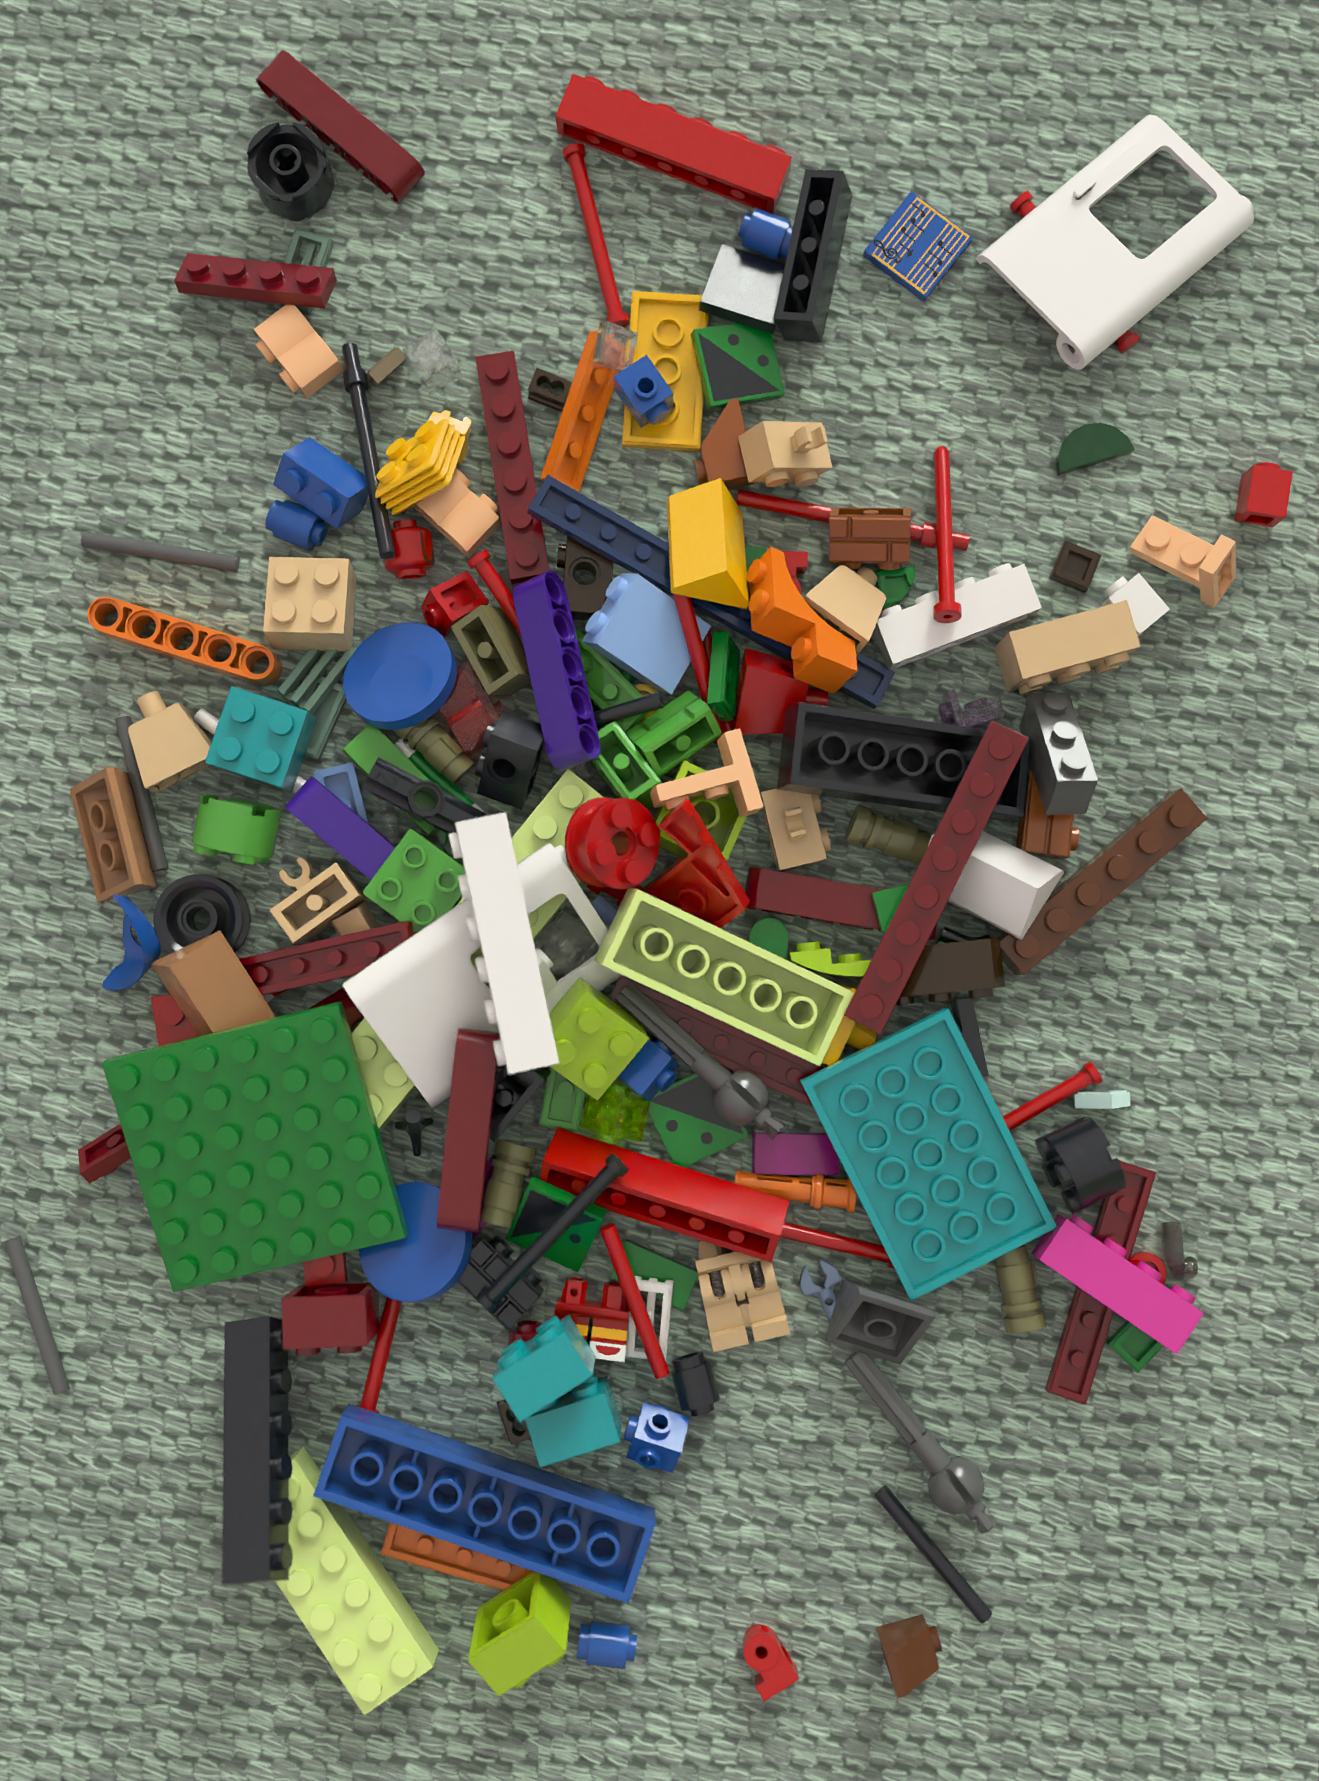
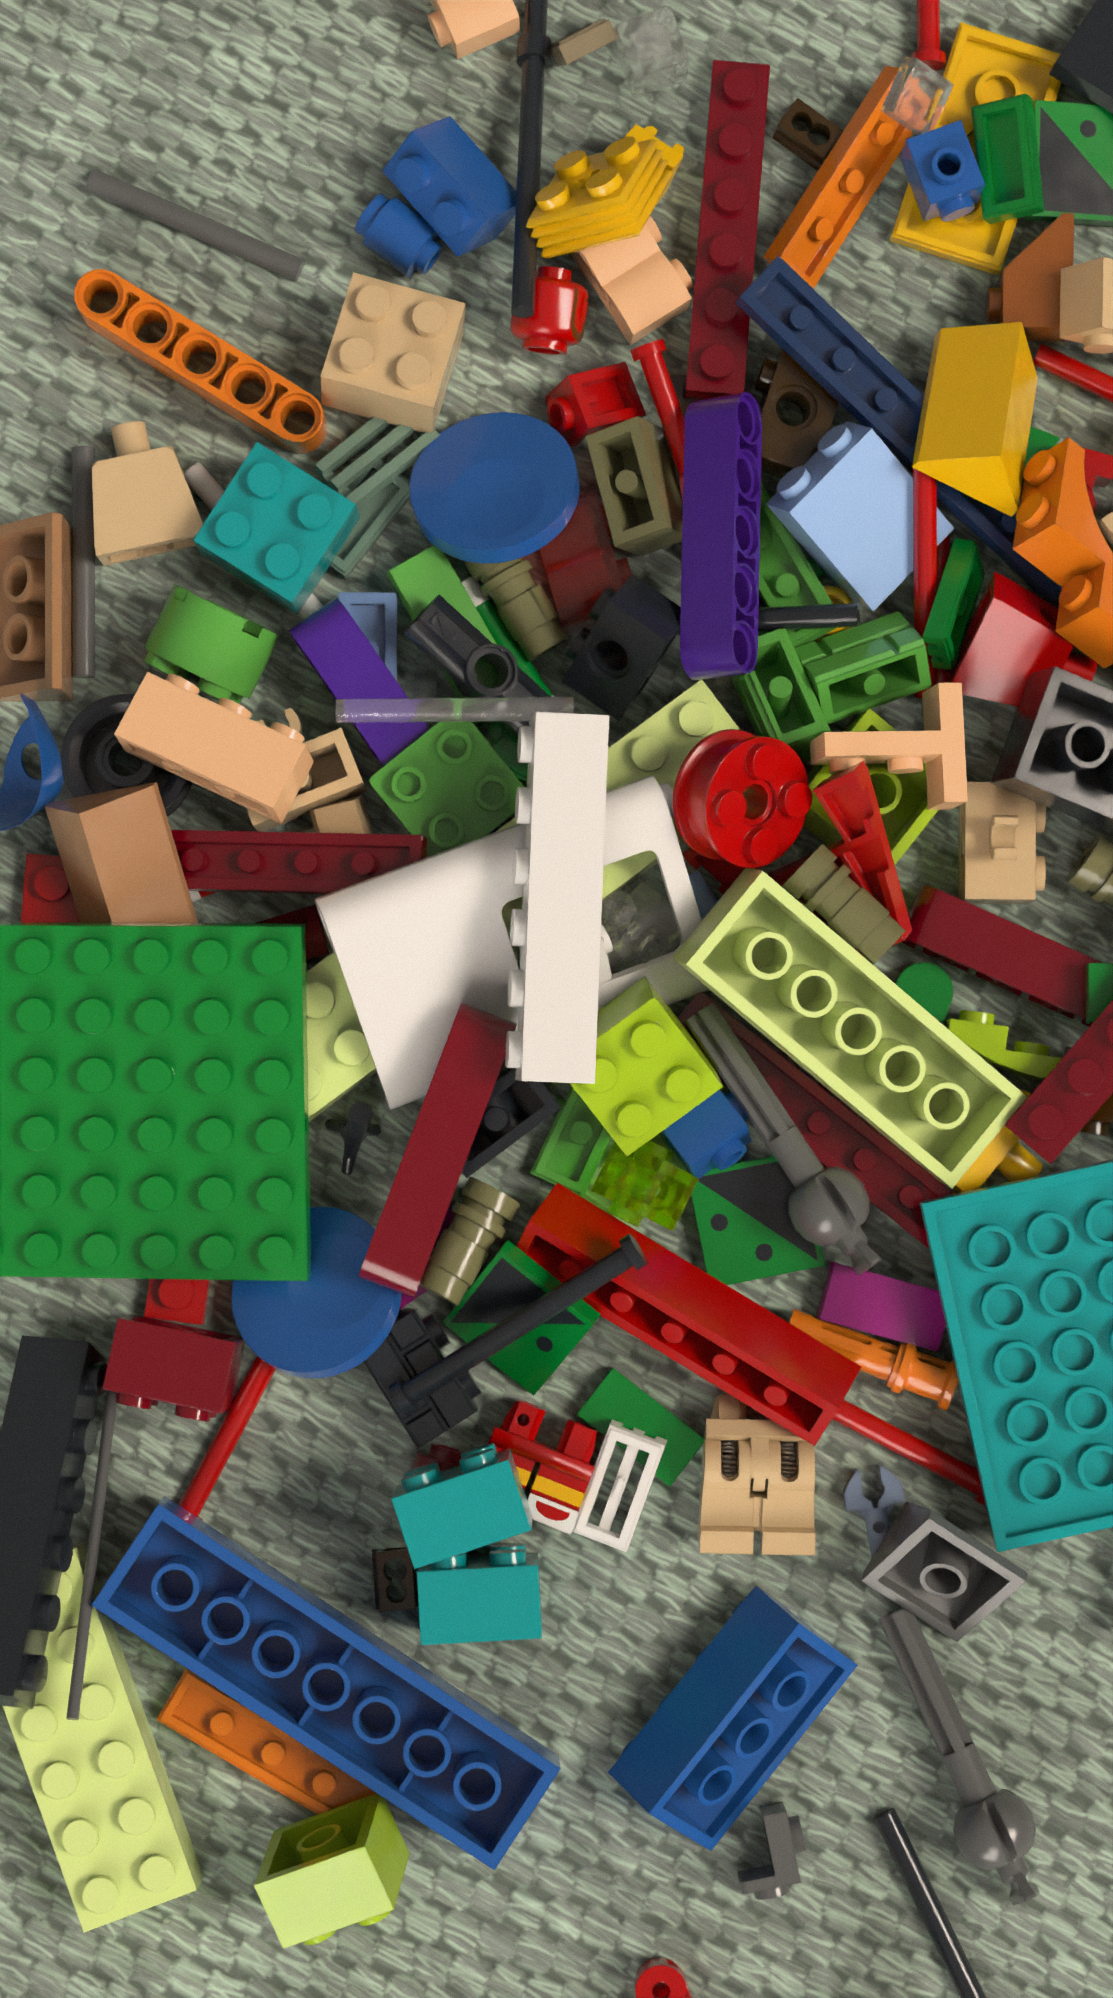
camera: 10 degrees right, 0 degrees up
(252, 896) = (215, 745): none -> light nougat brick
(308, 1470) = (92, 1557): none -> dark grey axle
(404, 832) = (448, 709): none -> clear bar
(606, 1644) = (444, 1927): blue brick -> none
(634, 1300) = (606, 1452): red bar -> none
(656, 1437) = (588, 1653): blue brick -> none
(685, 372) = (1008, 158): none -> green tile
(694, 1383) = (660, 1593): black brick -> none
(698, 896) = (844, 905): none -> olive axle
(762, 1456) = (731, 1719): none -> blue slope
(818, 1528) = (783, 1840): none -> dark grey bracket

